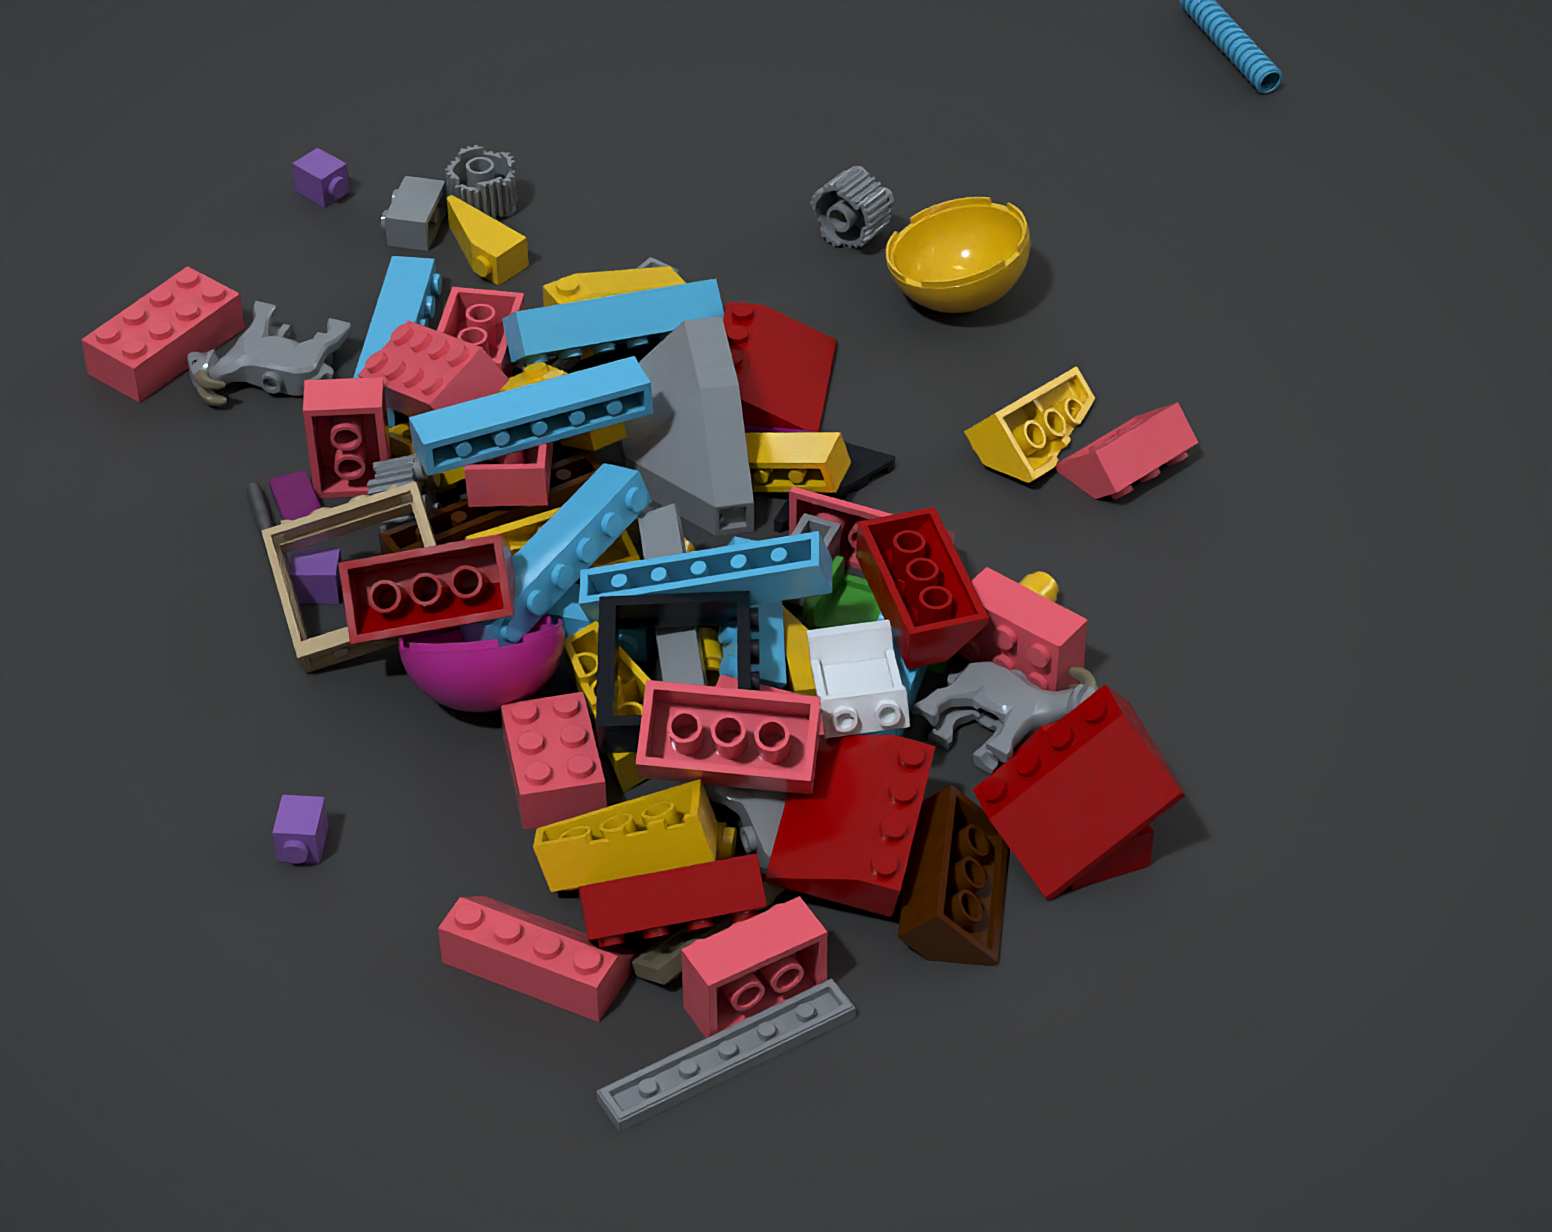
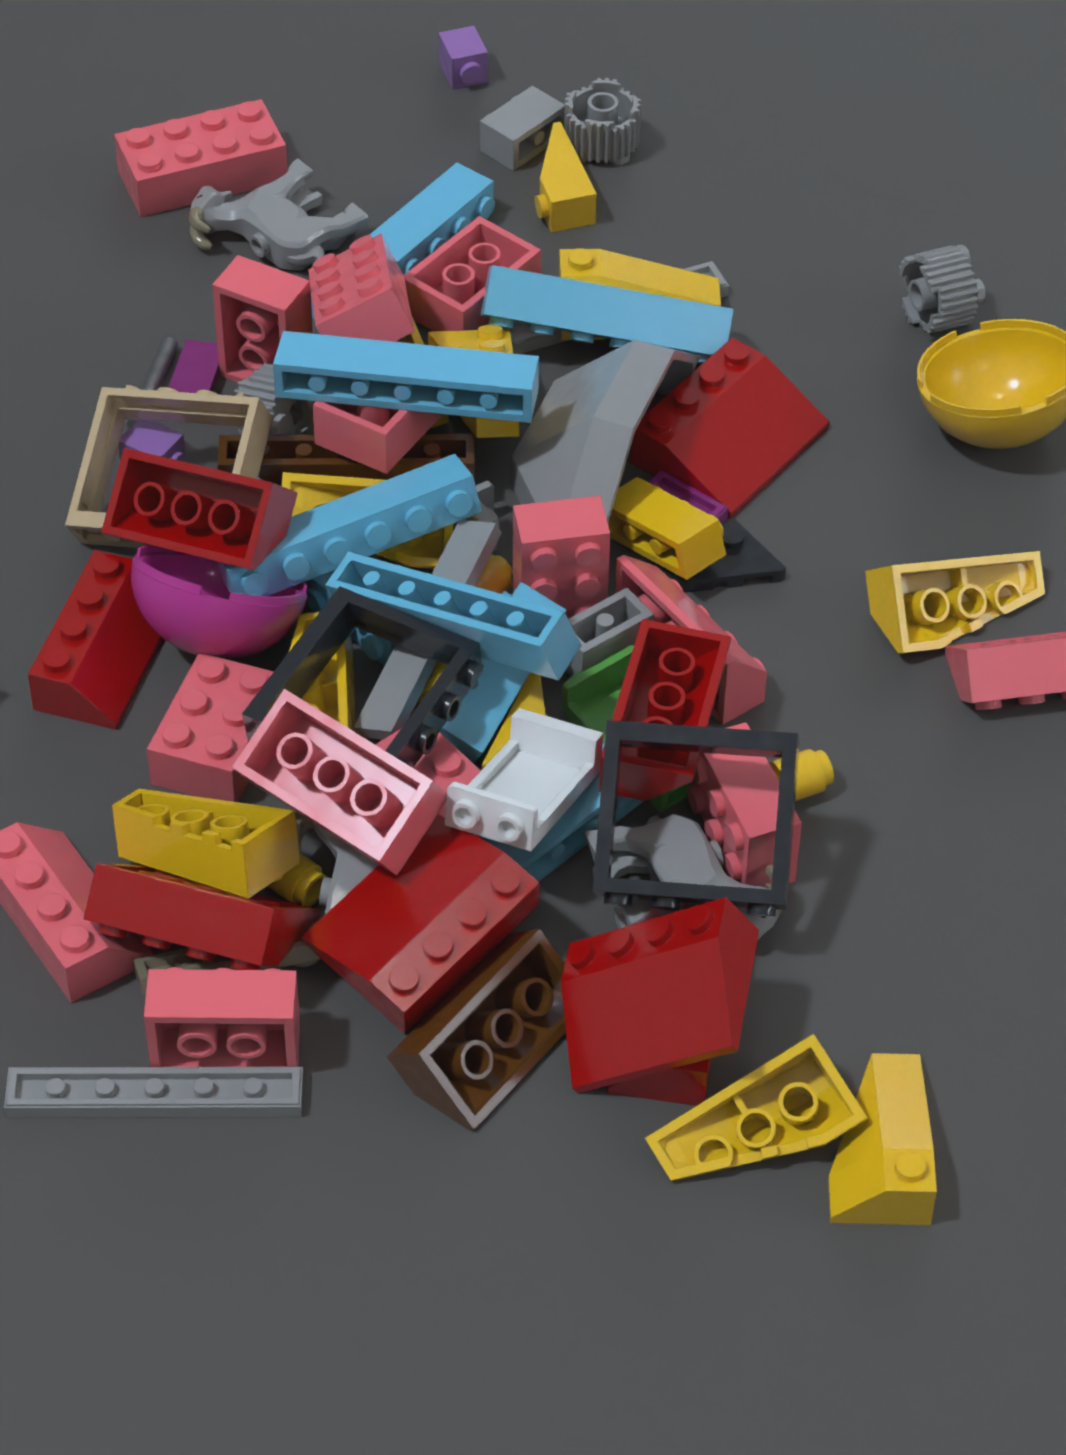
camera: 30 degrees right, 5 degrees up
(398, 739) = (95, 648): none -> red slope
(741, 500) = (563, 551): none -> coral brick
(1024, 718) = (701, 740): none -> black window
(1212, 842) = (771, 1112): none -> yellow wedge
(1313, 832) = (888, 1160): none -> yellow wedge

